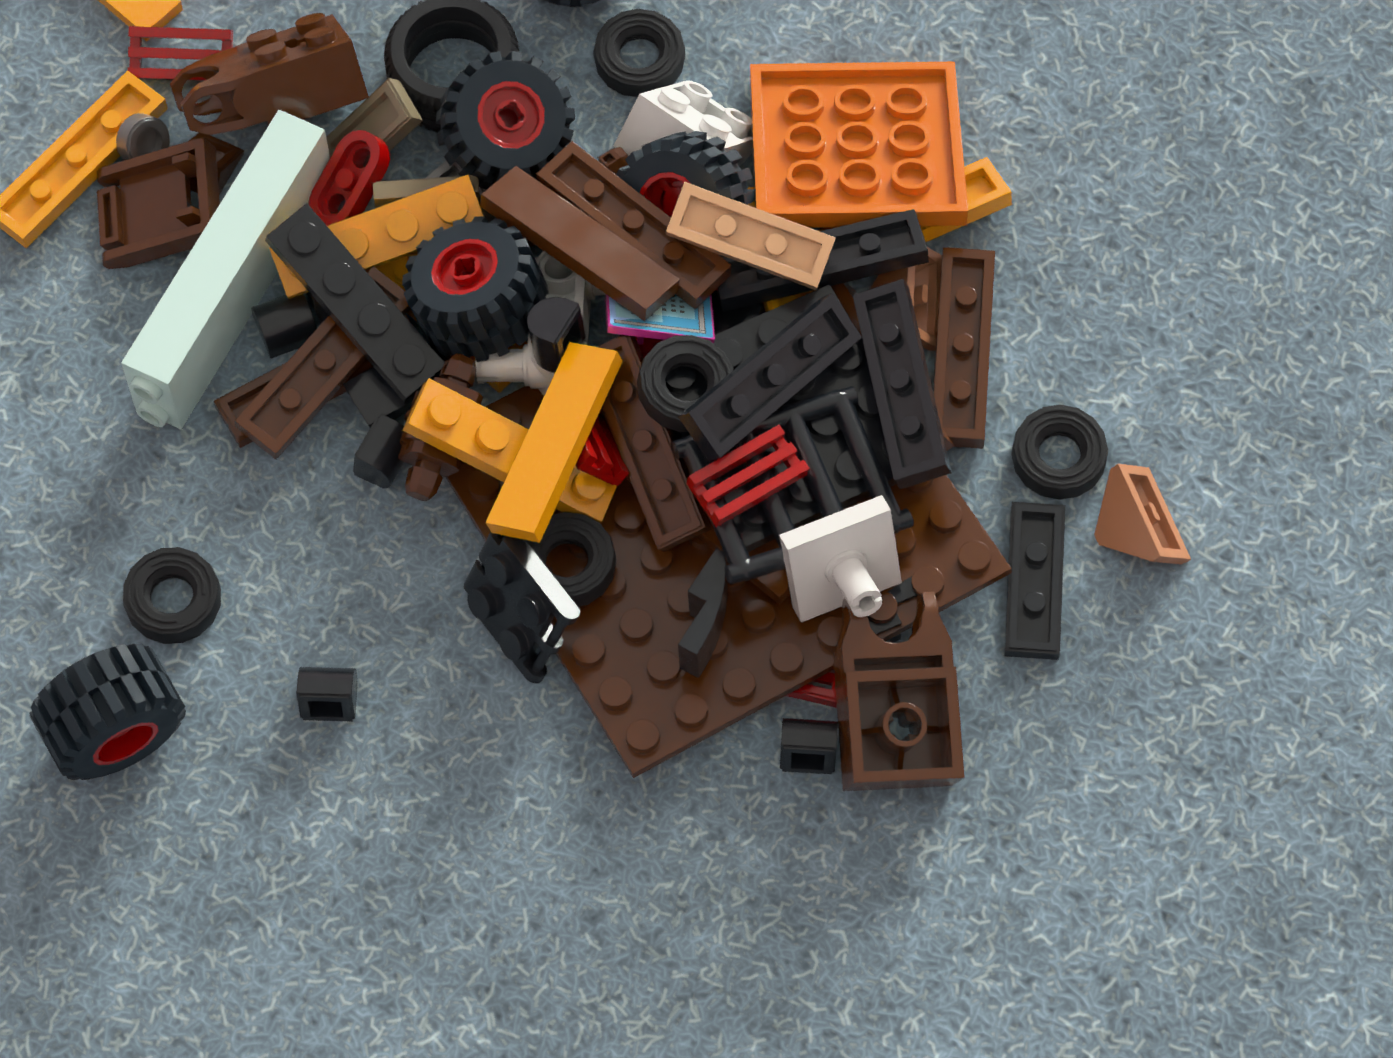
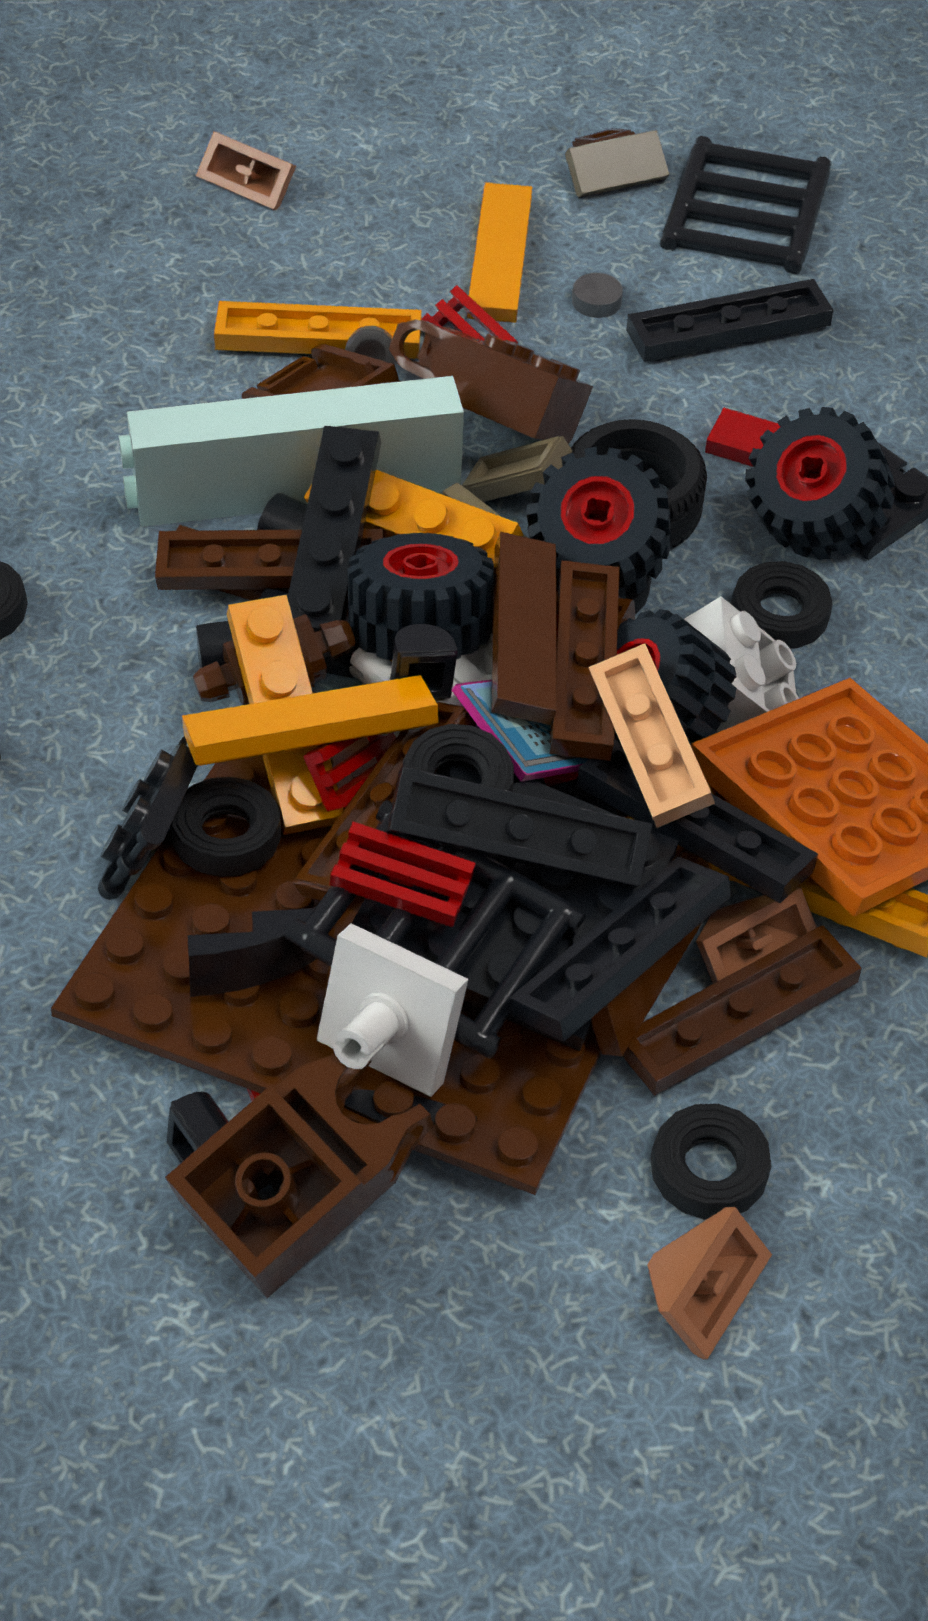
camera: 50 degrees right, 15 degrees down
(347, 177) = (475, 468): red plate -> none
(1035, 581) = (552, 1229): black tile -> none

